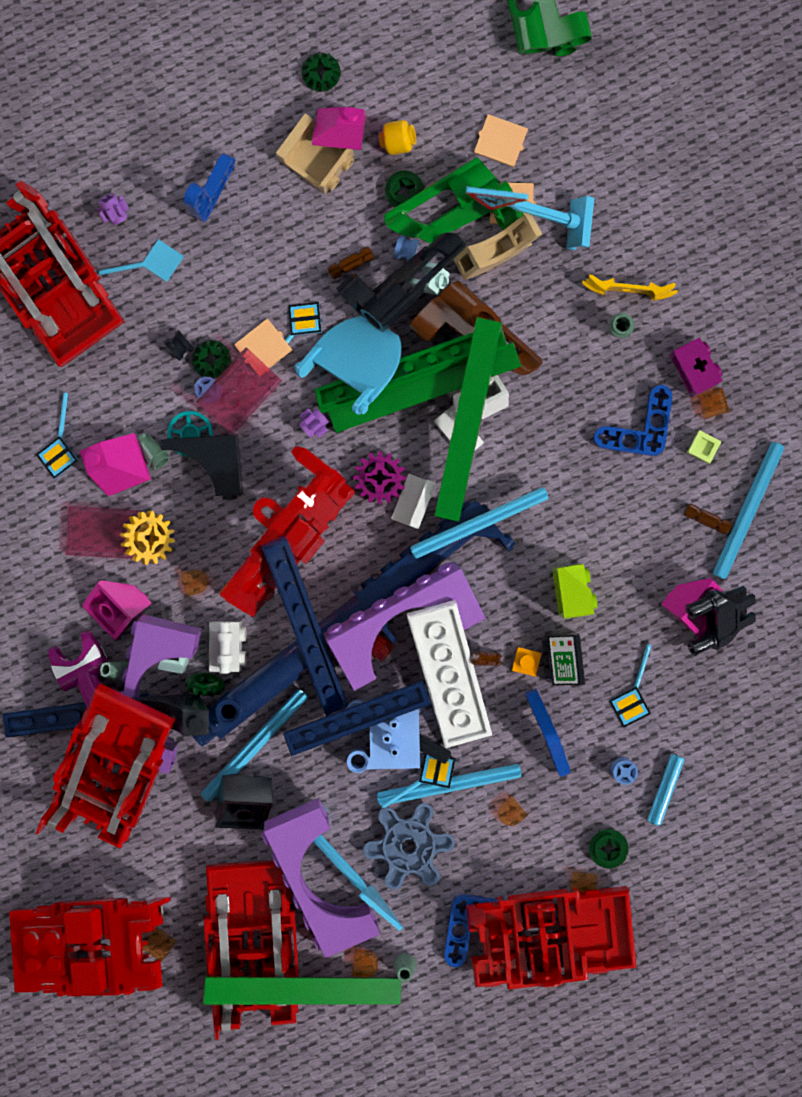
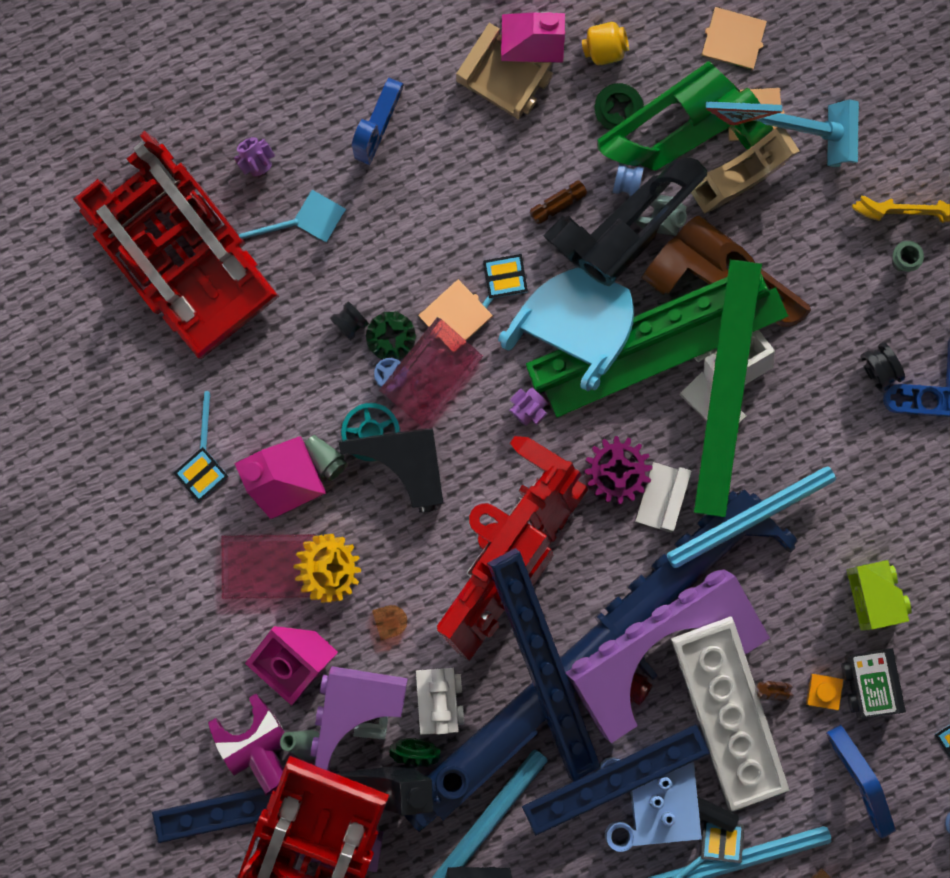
camera: 10 degrees left, 5 degrees down
(594, 412) = (883, 367): none -> black wheel

